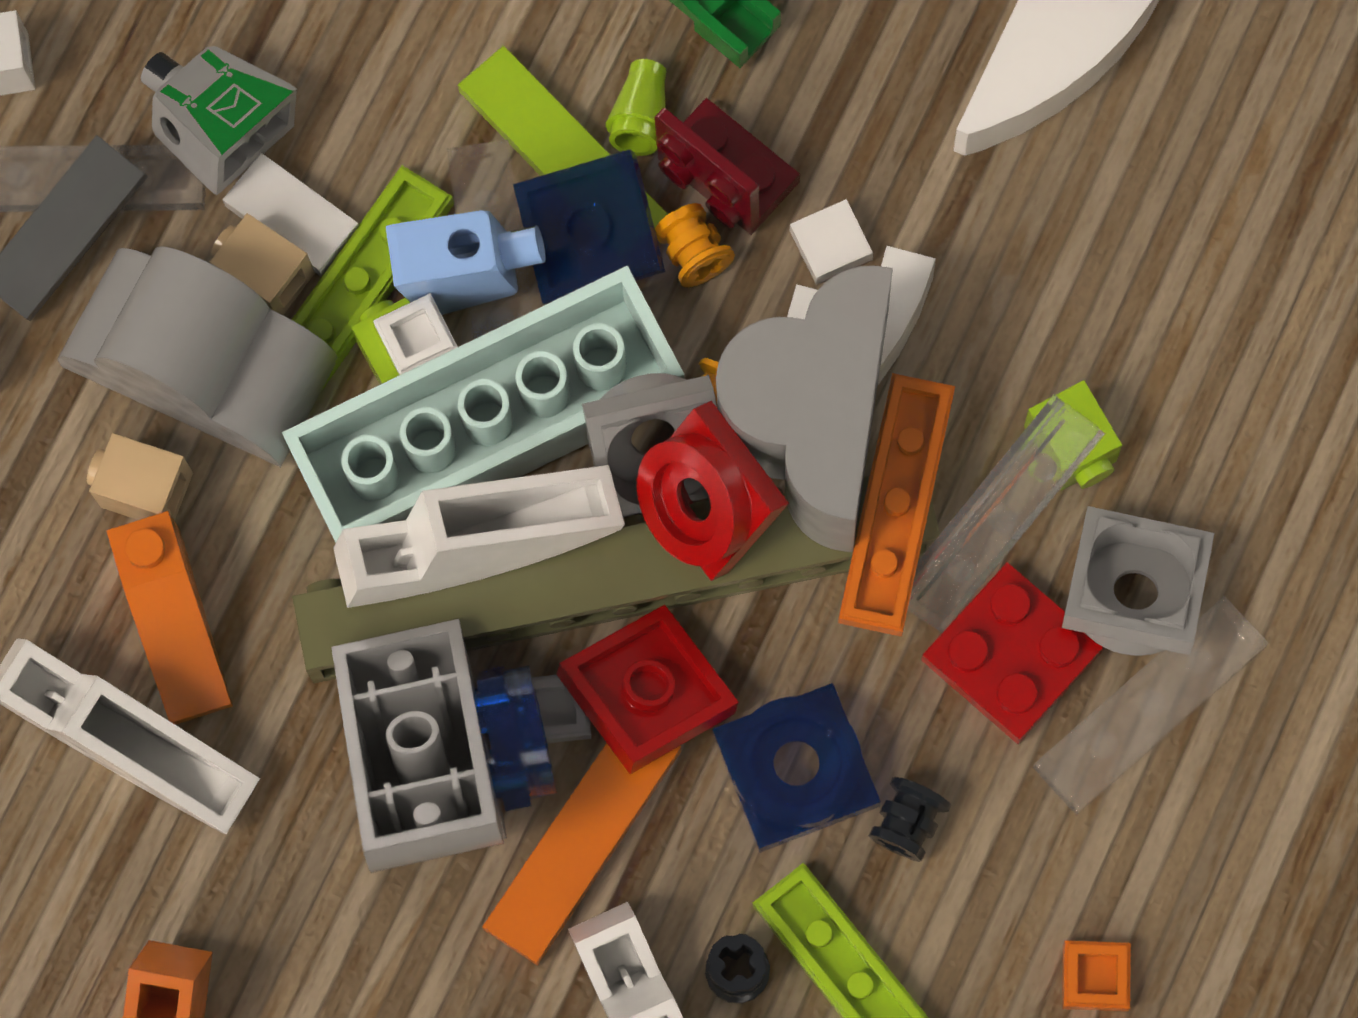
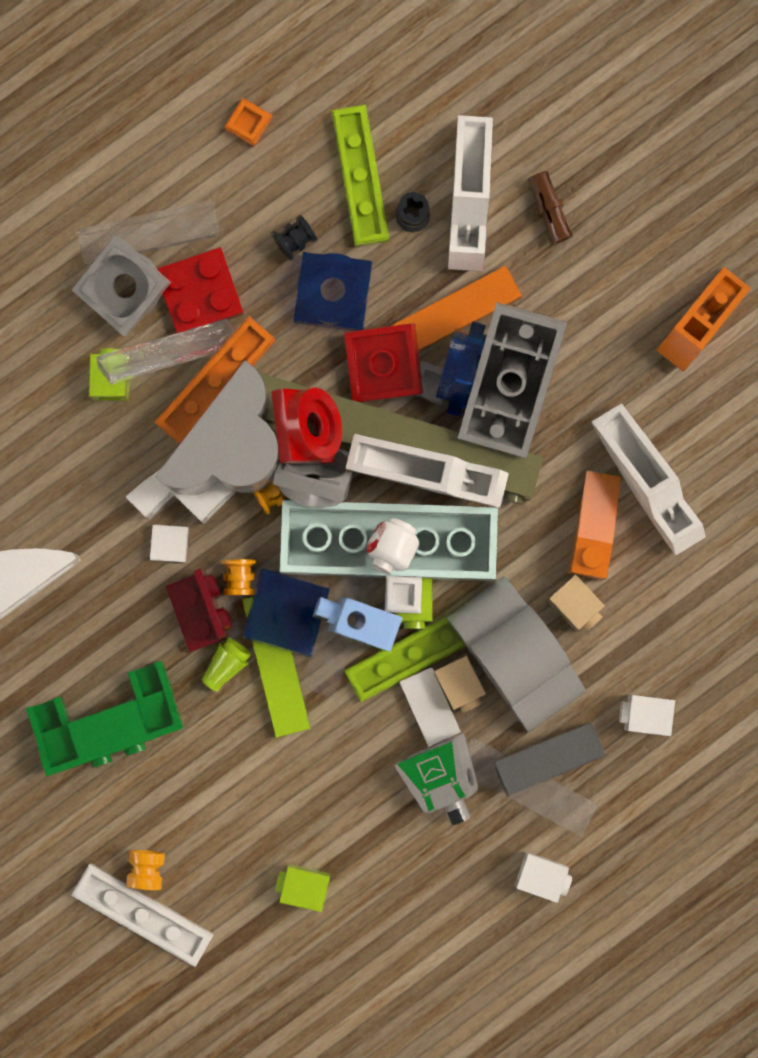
camera: 155 degrees left, 10 degrees up
(467, 383) = (392, 546): none -> white head

